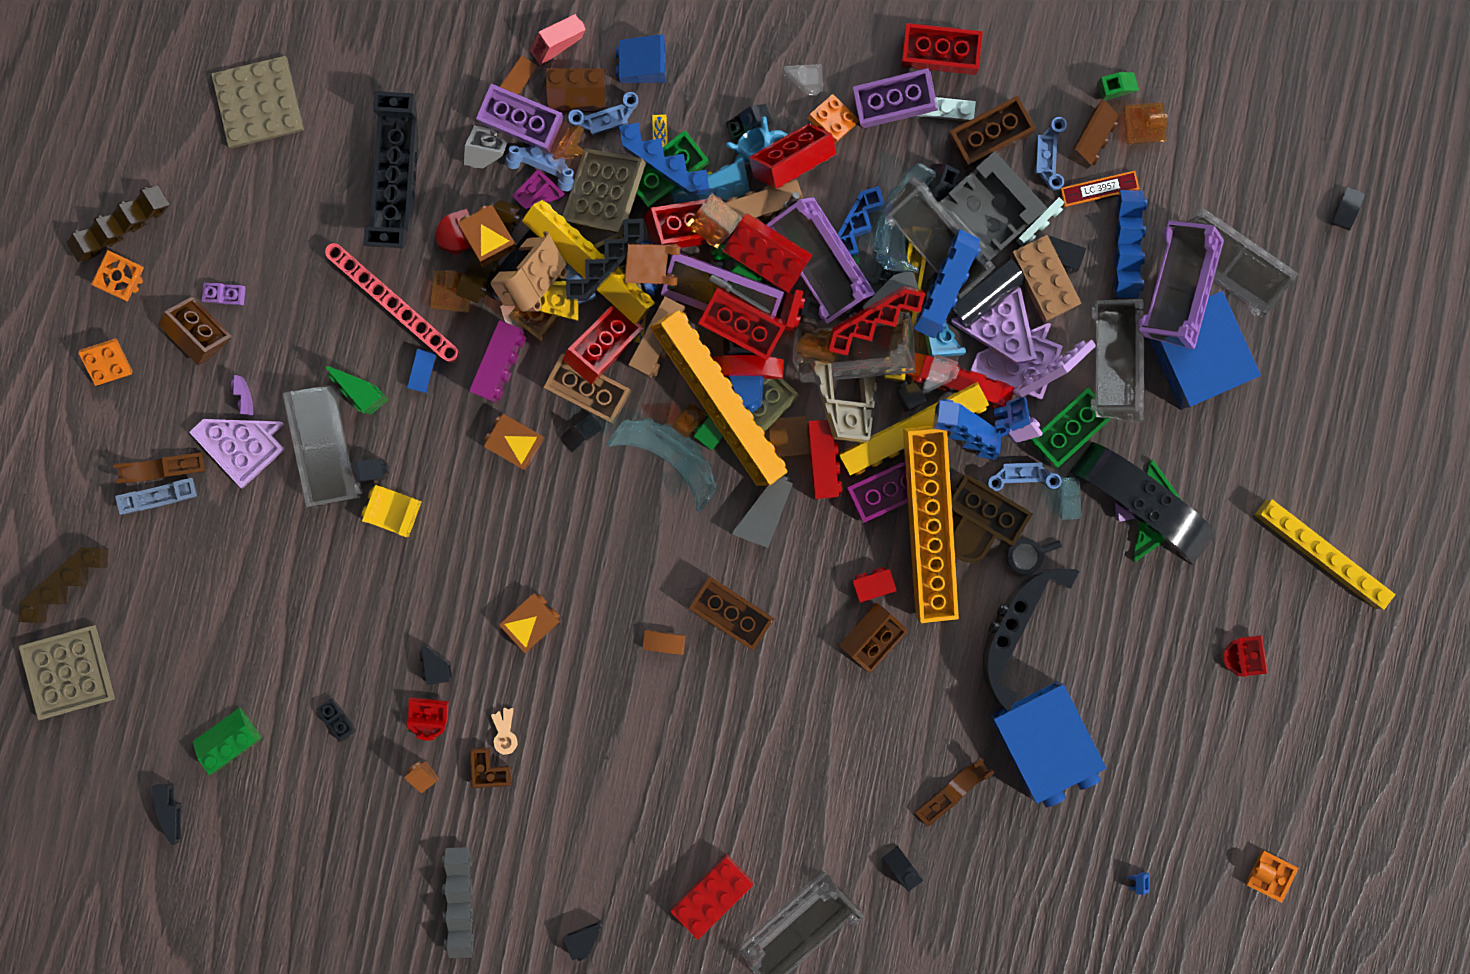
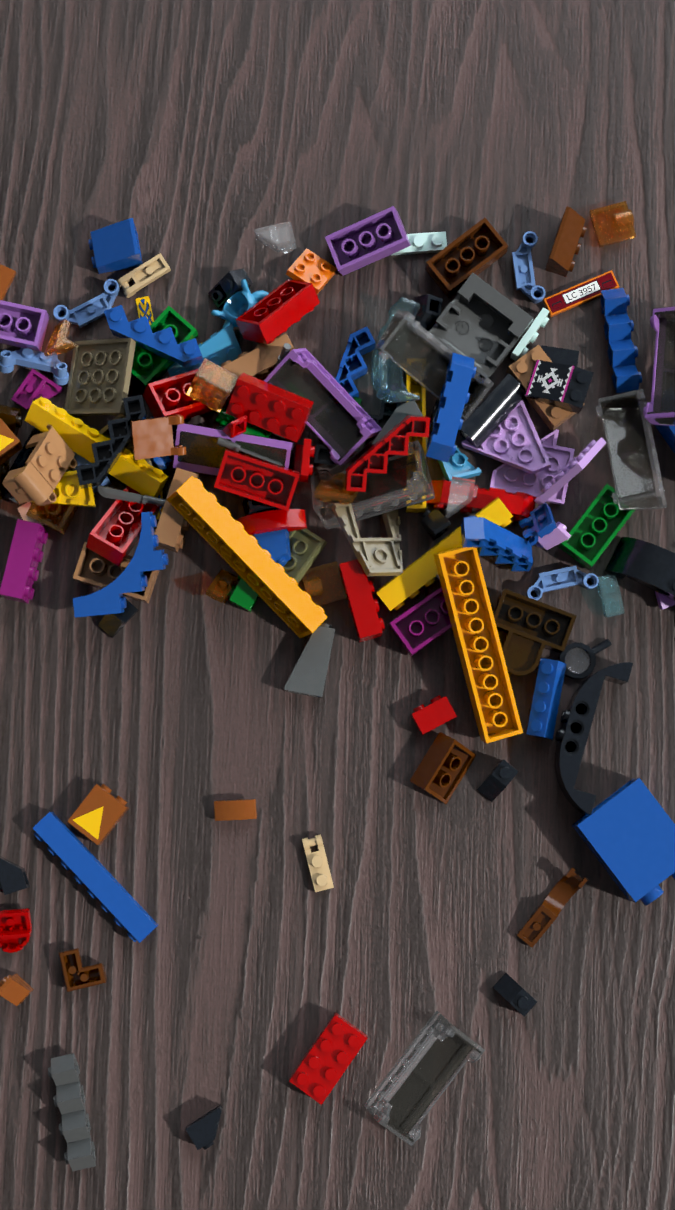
camera: 15 degrees left, 5 degrees down
(505, 741) = (93, 938): light nougat piece -> none
(513, 441) = (51, 637): dark orange brick -> none
(517, 682) = (95, 877): none -> blue brick
(557, 38) = (29, 241): coral slope -> none
(576, 89) = (57, 286): reddish brown slope -> none
(602, 401) = (146, 558): none -> blue arch
(614, 317) = (129, 496): none -> dark grey piece
(665, 93) = (144, 275): none -> tan plate
(675, 449) = (212, 616): clear light blue windscreen -> none
(731, 267) = (236, 427): none -> red slope
(731, 613) = (297, 768): reddish brown brick -> none
(735, 709) = (318, 864): none -> tan plate
(924, 659) = (497, 780): none -> black slope
(941, 49) = (403, 187): red brick -> none
(987, 589) = (546, 698): none -> blue brick
(1060, 280) = (559, 385): none -> black slope
(1117, 85) = (578, 192): green slope -> none

